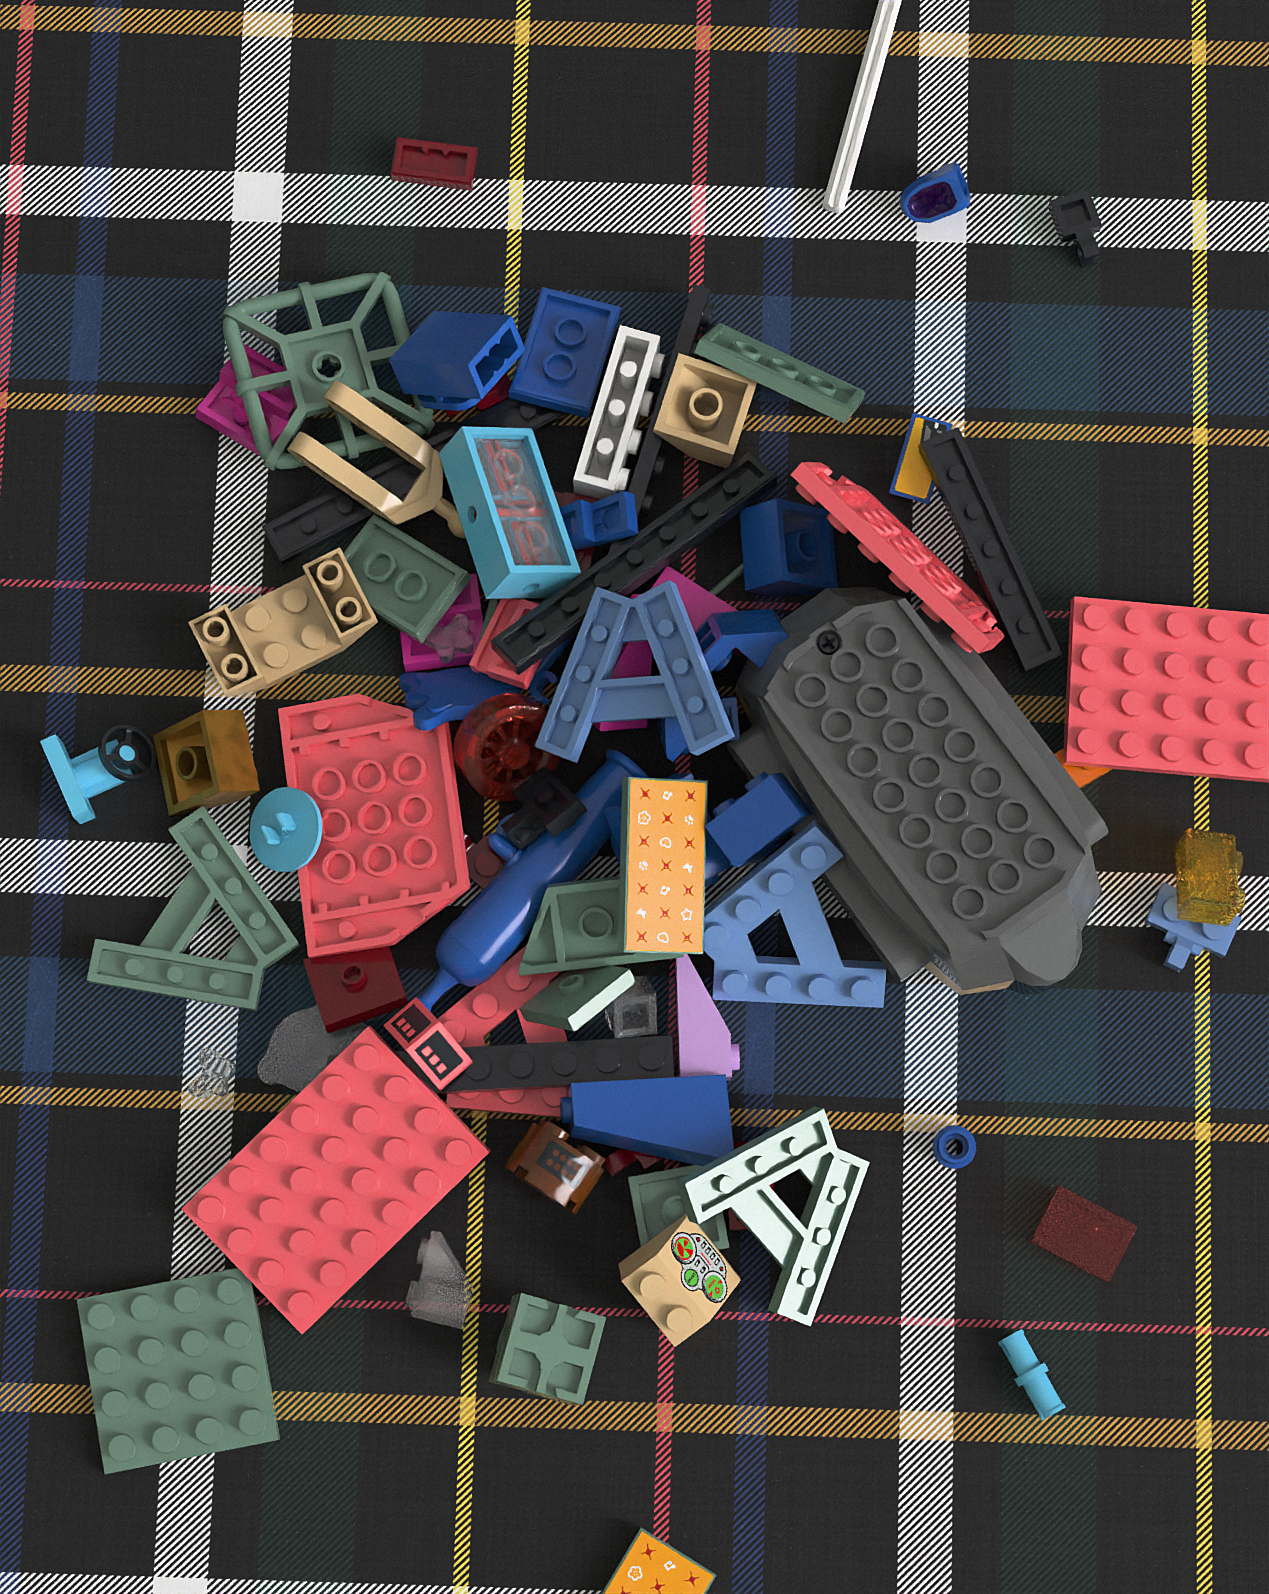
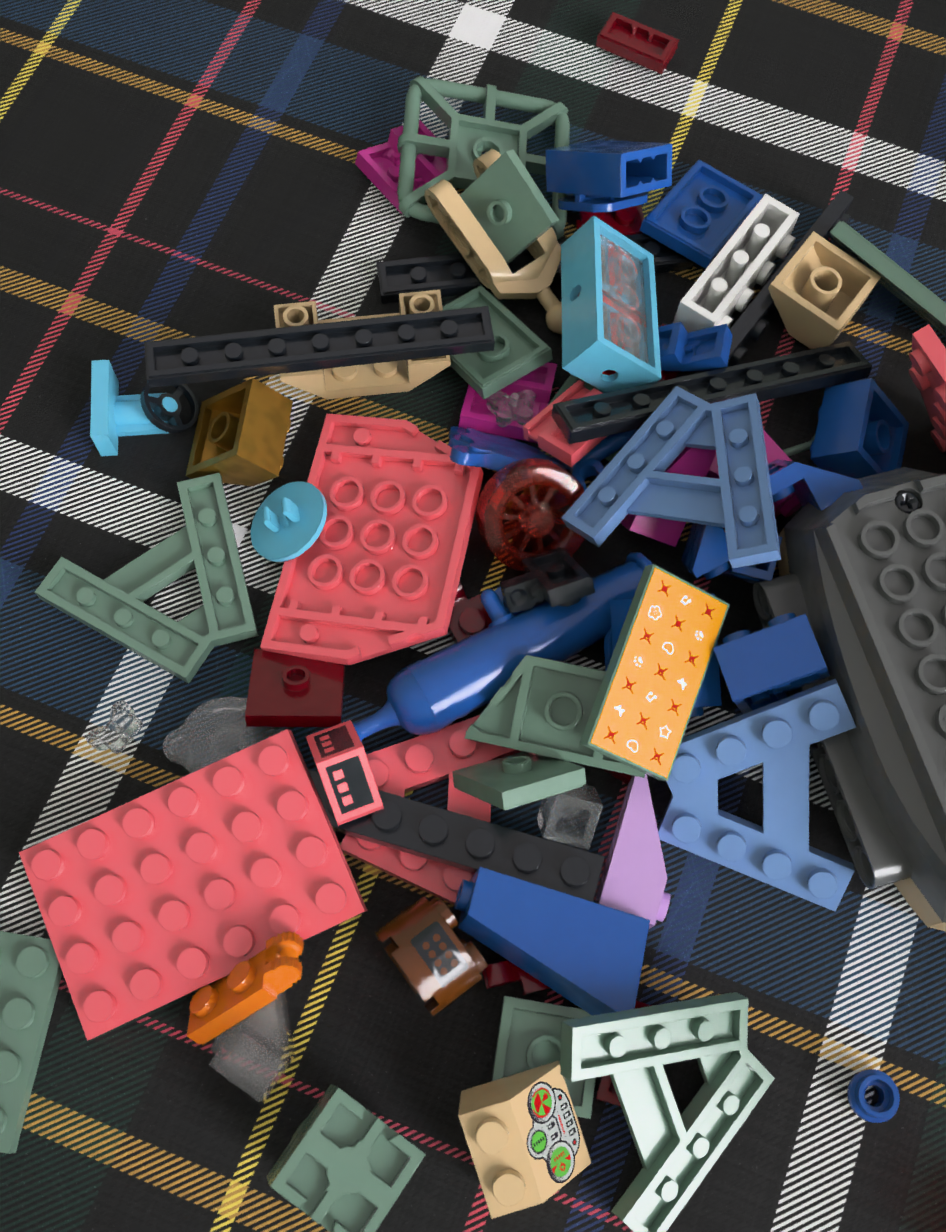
camera: 15 degrees right, 10 degrees down
(252, 655) = (318, 346): none -> black tile
(374, 441) = (509, 206): none -> sand green plate
(416, 1247) = (246, 988): none -> orange hinge

